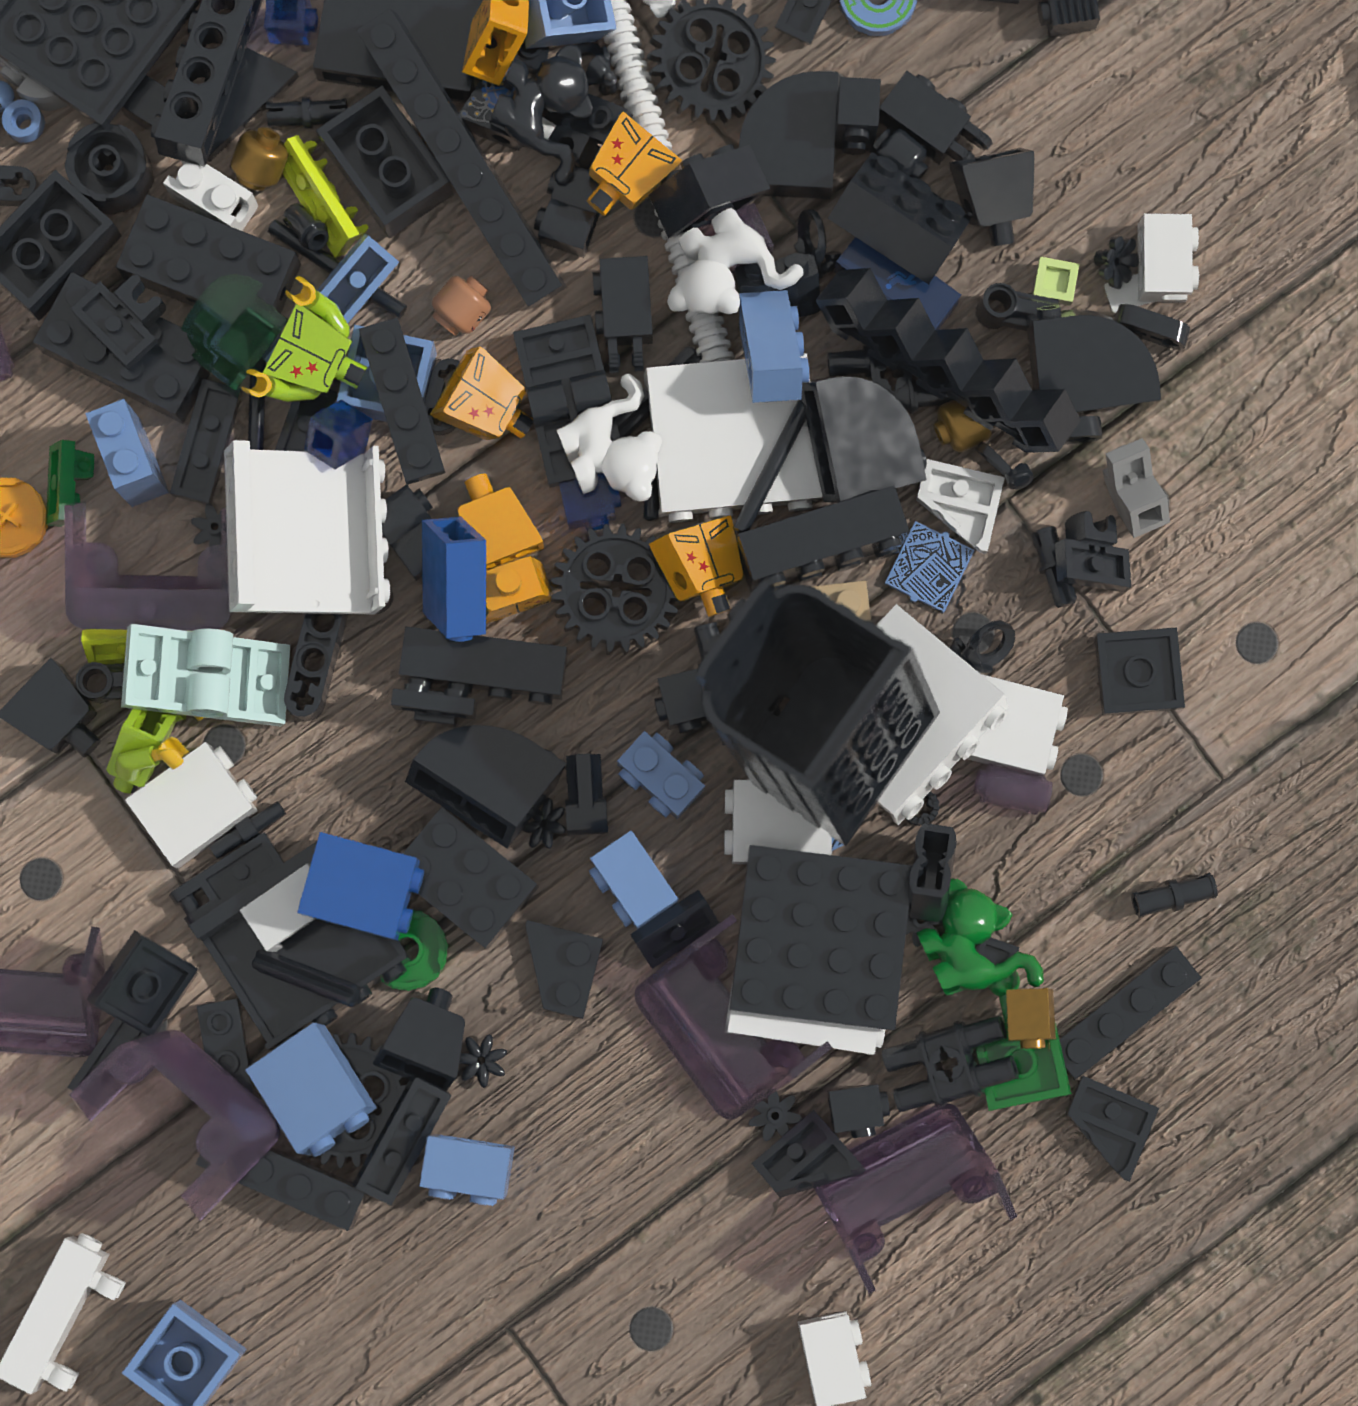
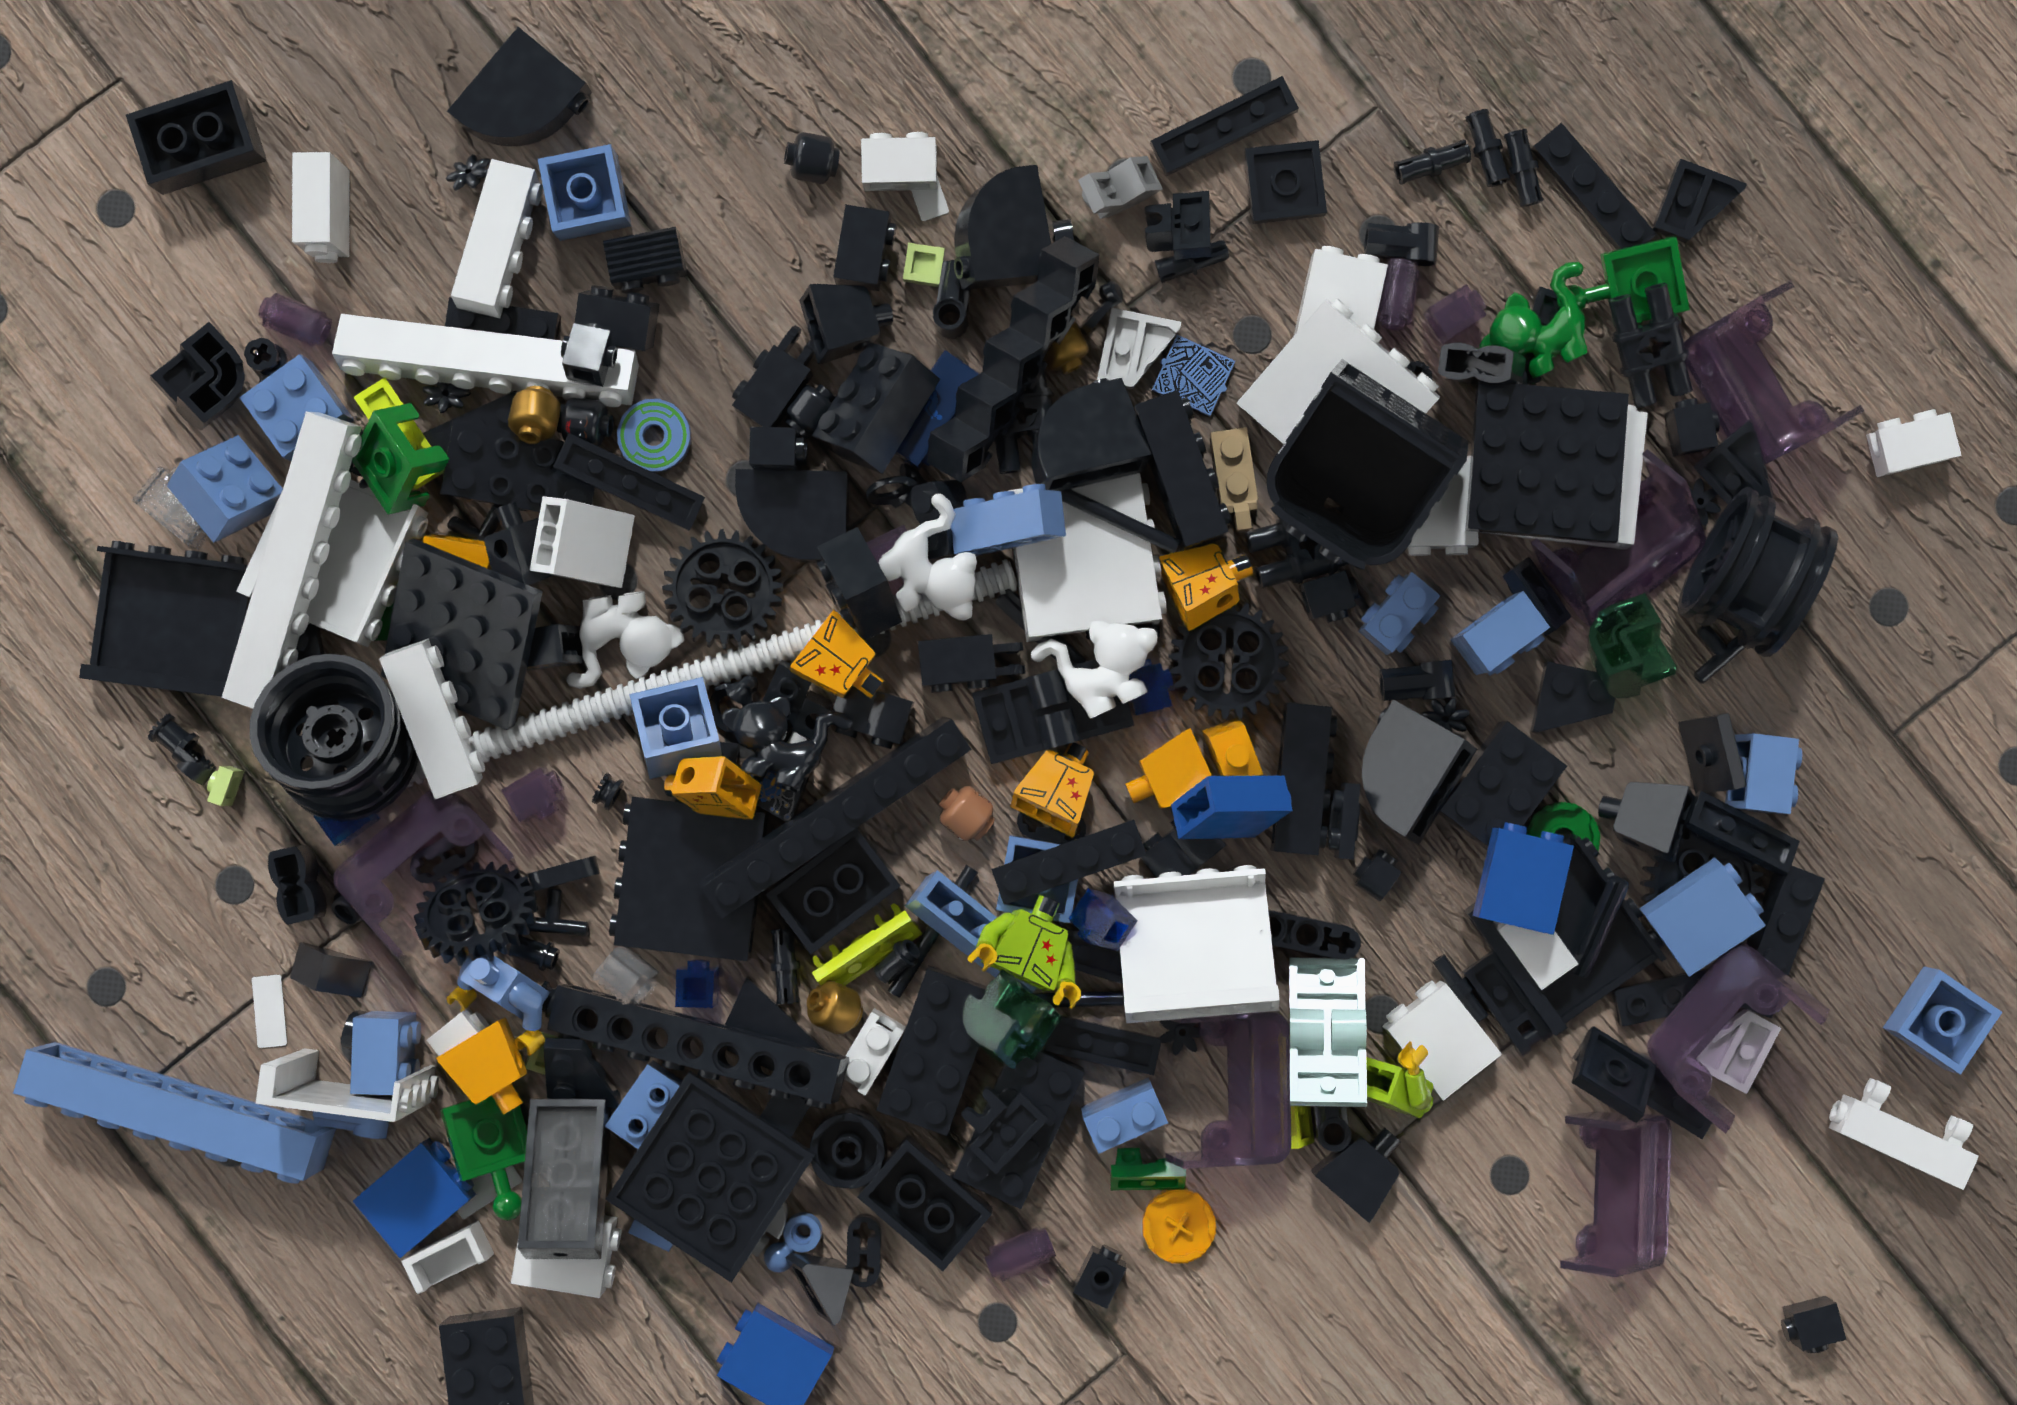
camera: 80 degrees left, 5 degrees up
(162, 1128) = (1740, 1049): none -> white wing
(376, 742) = (1377, 874): none -> black plate
(472, 1057) = (1667, 766): black plant -> none
(492, 1112) = (1712, 753): none -> black plate
(606, 1136) = (1723, 653): none -> black piece
(612, 1022) = (1628, 647): none -> clear green brick
(690, 1162) = (1758, 572): none -> black wheel
(984, 662) = (1281, 331): black piece -> none
(990, 850) = (1455, 313): none -> clear purple brick
(1031, 1017) = (1611, 272): pearl gold brick -> none
(1069, 806) = (1410, 242): none -> black piece
(1074, 215) = (863, 247): none -> black brick
(1117, 260) = (904, 208): black plant -> none
(1151, 934) = (1523, 167): none -> black pin
(1153, 326) = (964, 174): black beam -> none
(1159, 833) = (1432, 161): none -> black pin
(1172, 166) = (812, 158): none -> black head
(1202, 607) = (1224, 126): none -> black plate

